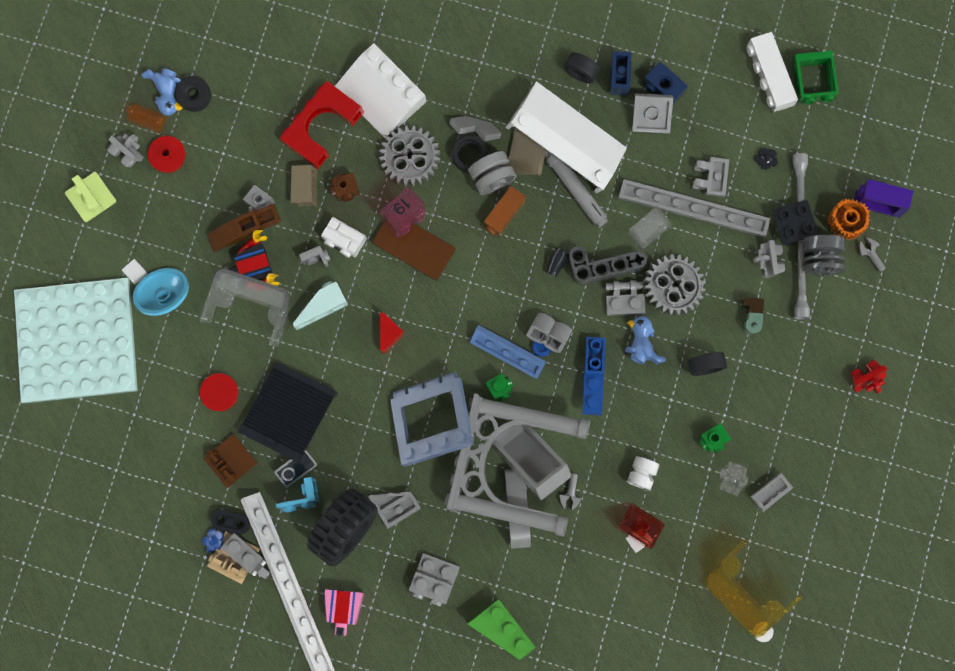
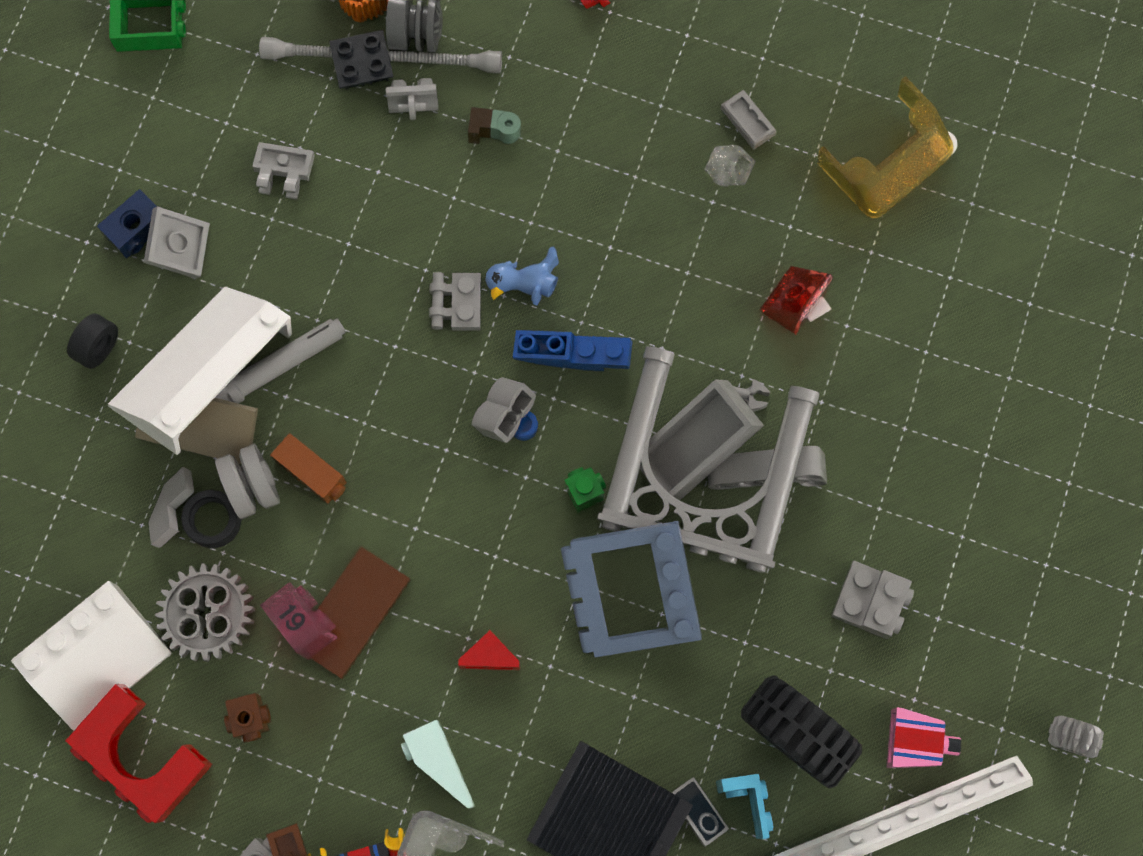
camera: 90 degrees left, 5 degrees down
(304, 185) = (237, 786): dark tan hinge -> none
(311, 256) = (357, 775): light grey bracket -> none
(343, 237) = (330, 723): white brick -> none
(395, 506) = (761, 654): light grey wing -> none
(503, 630) = (947, 499): bright green wedge -> none
(507, 352) = (529, 474): medium blue plate -> none
(557, 261) = (393, 395): black cone -> none
(607, 264) = (405, 320): dark grey beam -> none
(620, 73) = (108, 284): dark blue brick -> none
(643, 473) = (719, 288): white wheel -> none
(649, 228) = (352, 261): clear brick -> none
(688, 276) = (441, 229): light grey gear -> none
(694, 208) = (327, 198): light grey plate -> none
(707, 364) = (563, 188): black tyre -> none
(714, 439) = (671, 188): green brick -> none
(766, 158) = (261, 95): black plant -> none
(772, 72) = (131, 75): white brick -> none

